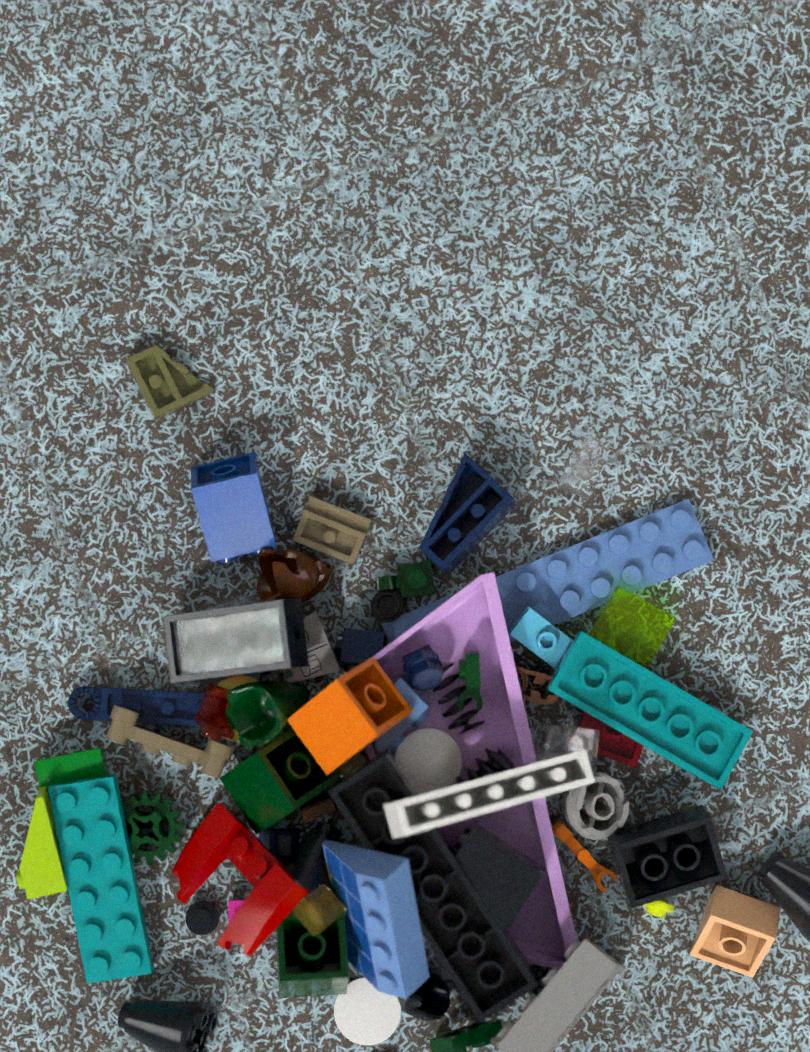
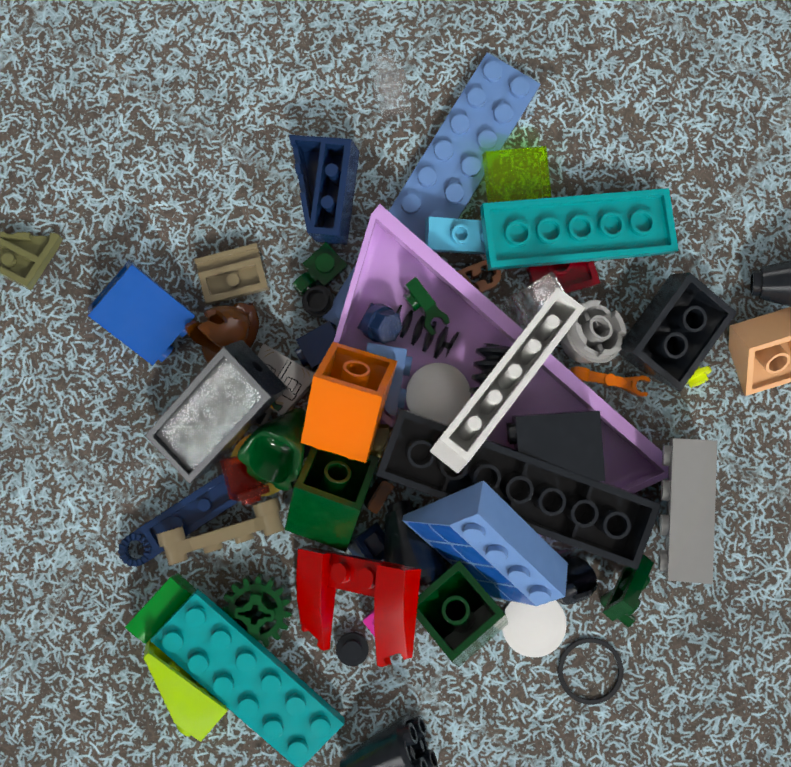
camera: 40 degrees left, 0 degrees up
(319, 910) = (440, 576): clear yellow slope -> none

